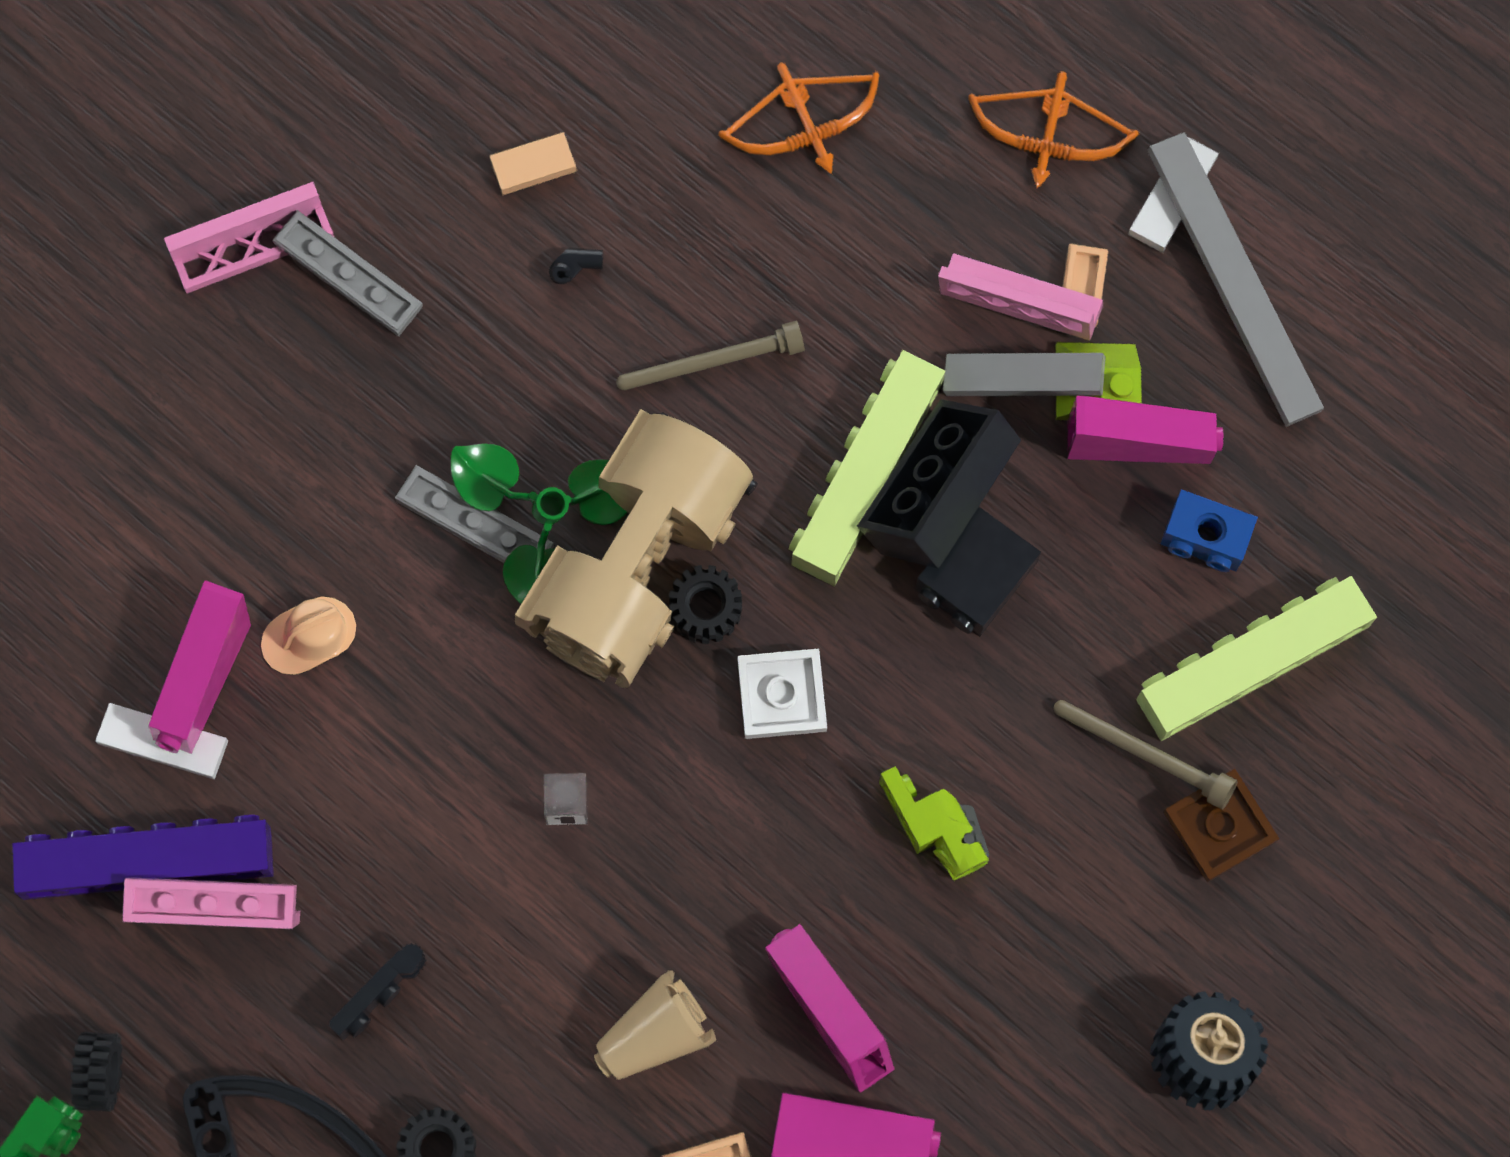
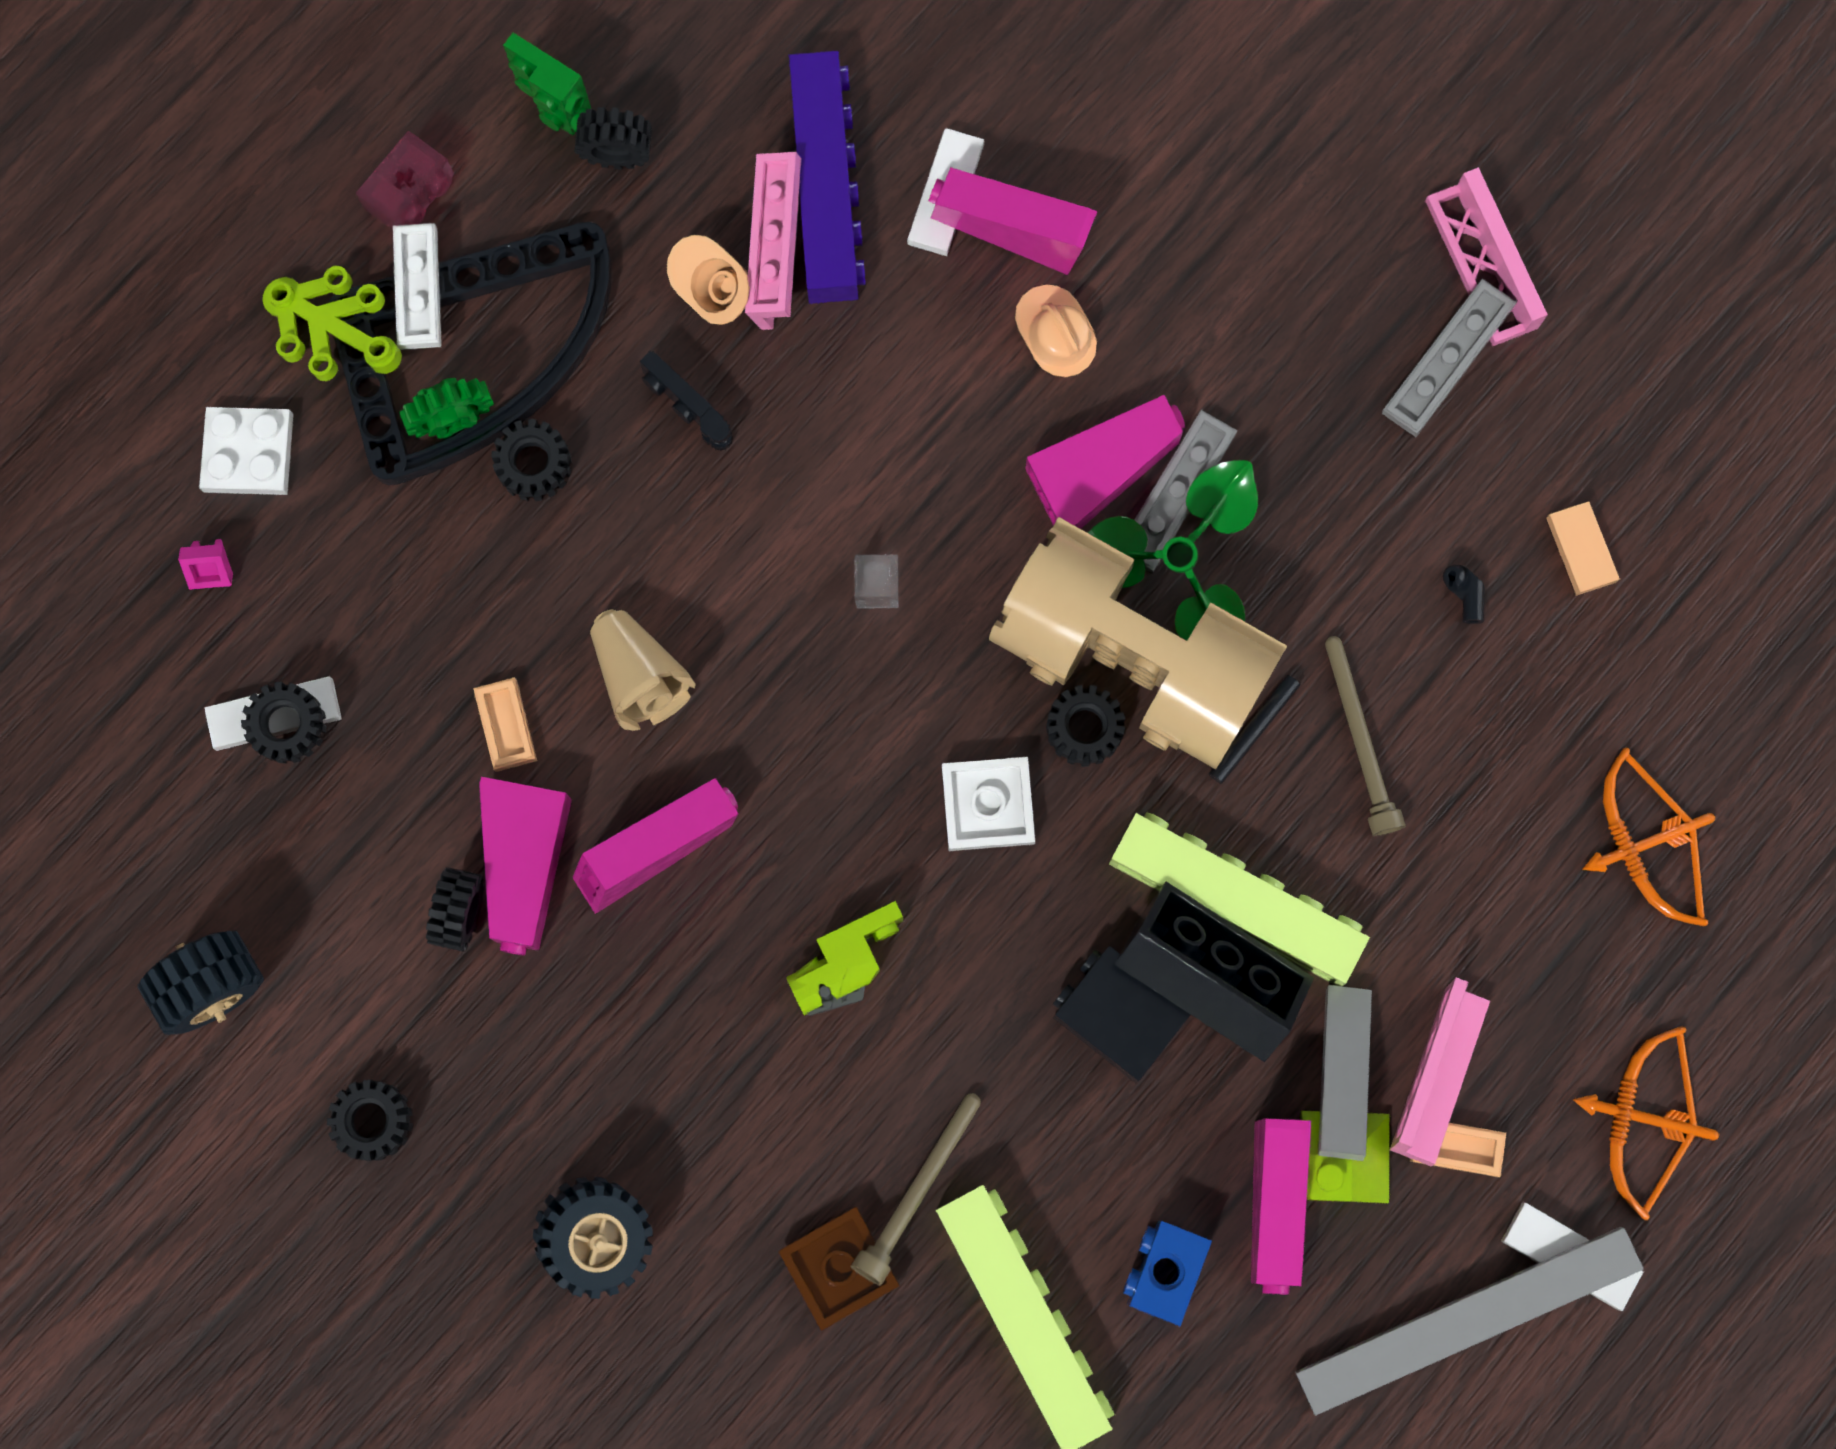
camera: 95 degrees right, 5 degrees up
(253, 968) = (708, 279): none -> light nougat piece
(453, 594) = (1100, 463): none -> dark pink slope

